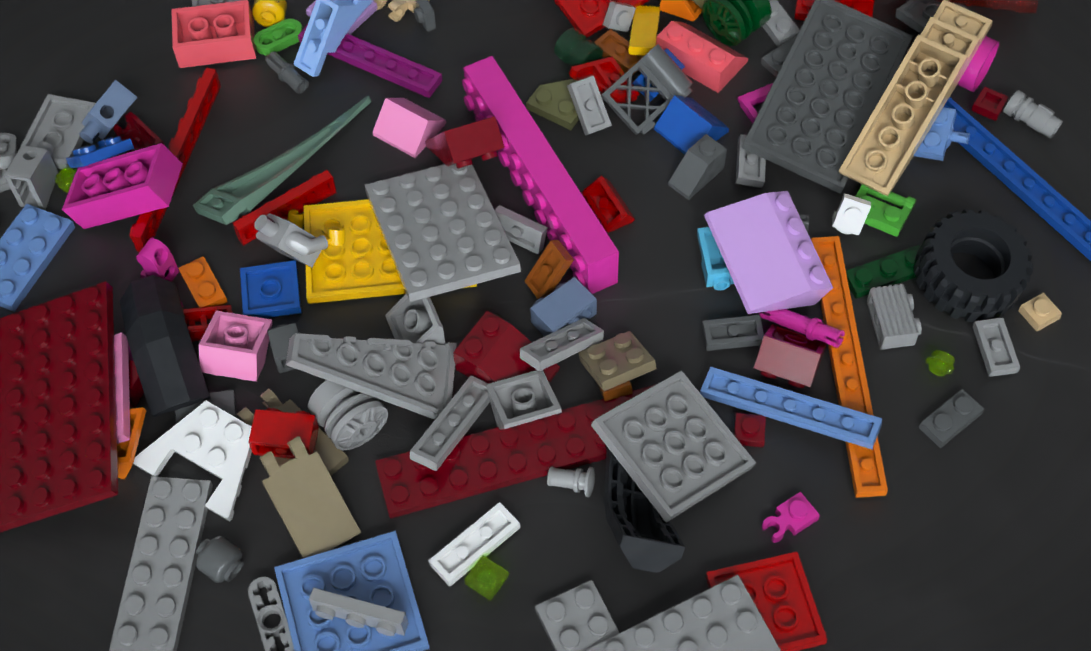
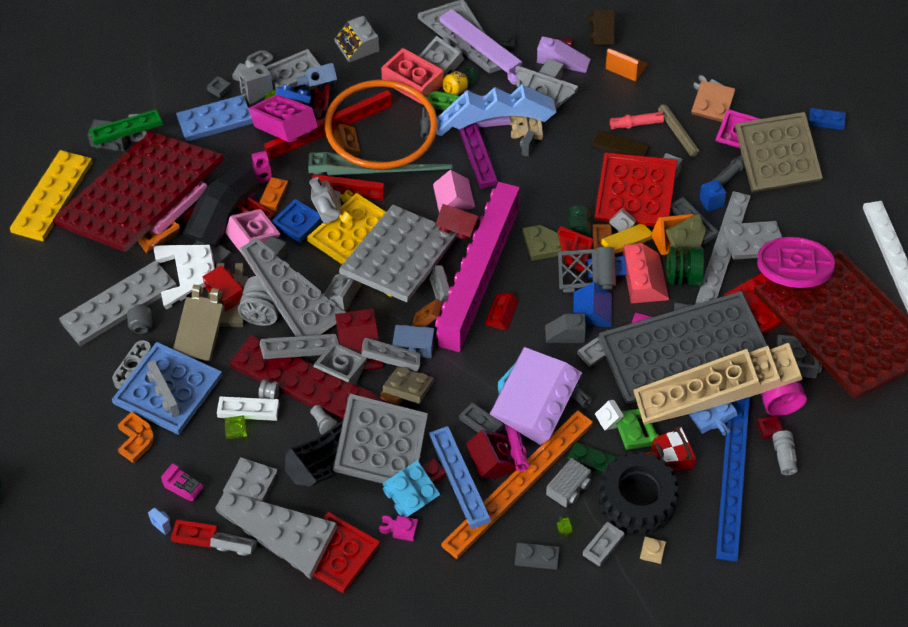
camera: 45 degrees right, 5 degrees down
(95, 42) = (357, 39): none -> light grey slope
(216, 161) = (347, 139): none -> dark orange slope
(253, 172) = (380, 165): none -> orange piece
(474, 502) = (268, 390): none -> light grey wheel
(589, 105) = (548, 253): light grey plate -> none
(760, 467) = (410, 489): none -> medium azure plate
(940, 196) = (674, 449): none -> torso

